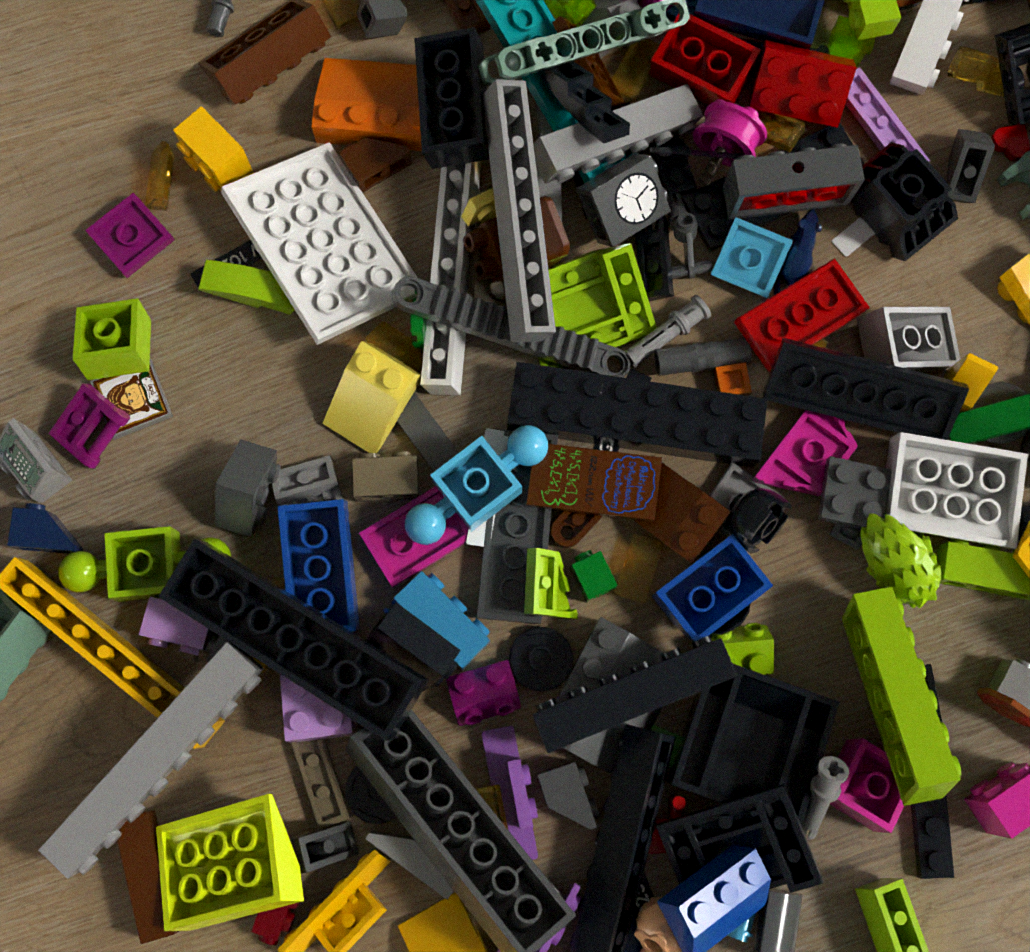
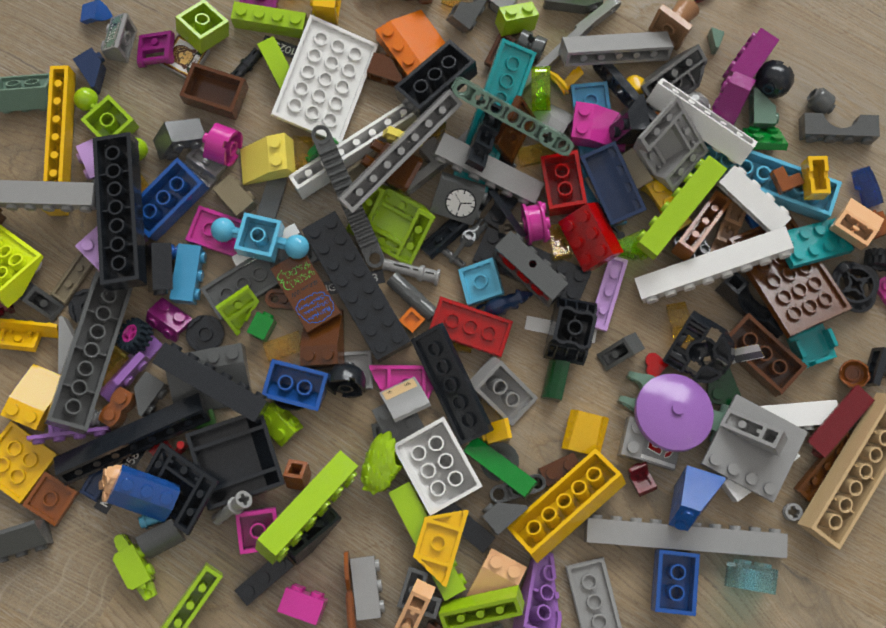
camera: 55 degrees right, 0 degrees up
(178, 249) = (268, 19): none -> lime brick
(212, 327) = (247, 63): none -> black pin
(216, 393) = (214, 91): none -> reddish brown piece
(302, 437) = (222, 144): none -> dark pink brick
(463, 751) = (134, 336): none -> black wheel
(559, 859) = (116, 411): none -> dark orange brick
(832, 677) = (297, 474): none -> dark orange brick
(842, 463) = (404, 399): none -> light grey slope
(946, 267) = (555, 380): none -> dark green brick

